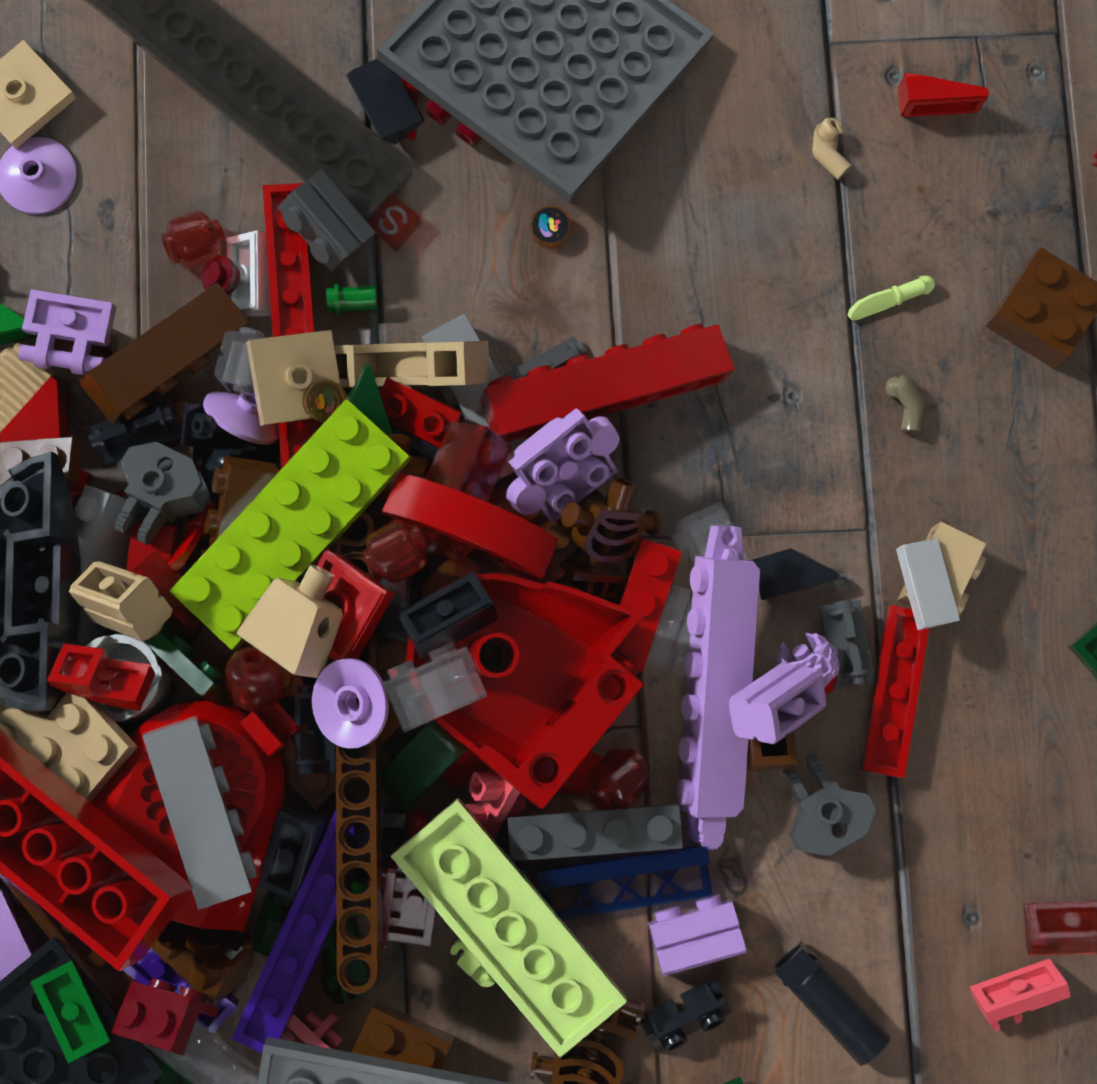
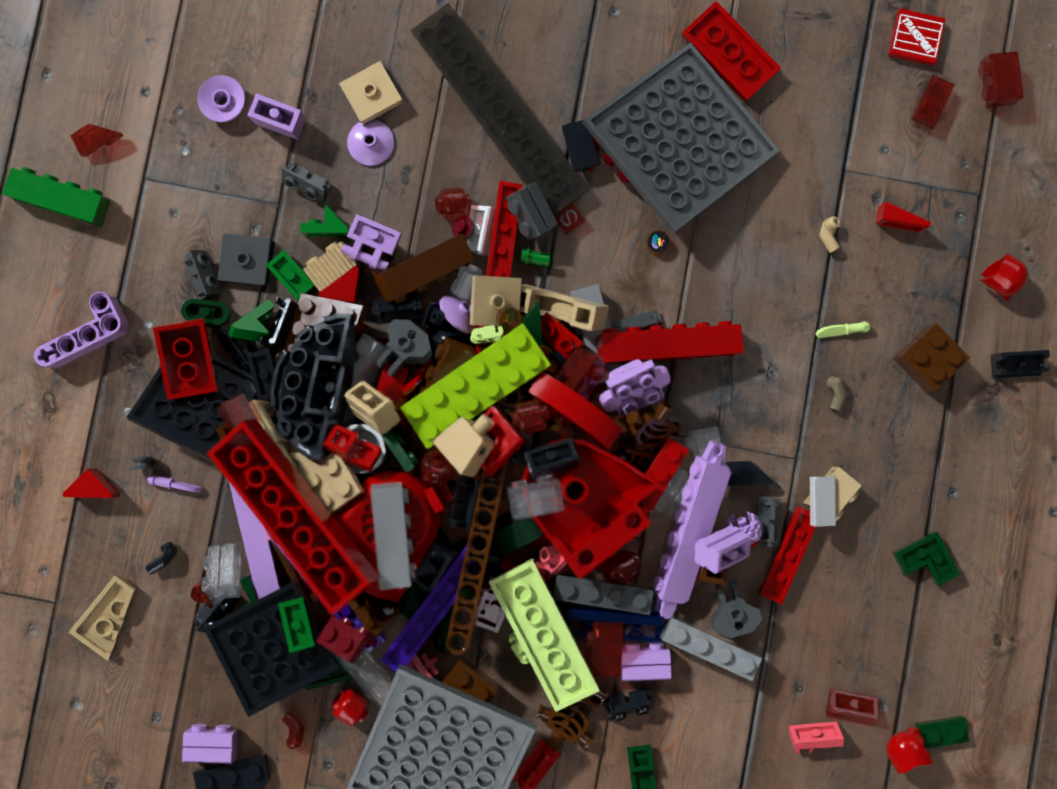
camera: 15 degrees right, 5 degrees up
(290, 436) = (486, 334): none -> yellowish green piece
(337, 708) = (478, 496): lavender dish -> none
(622, 927) = (606, 649): none -> clear red brick
(801, 881) = (710, 648): none -> light grey arch
(832, 1004) = (710, 717): black piece -> none

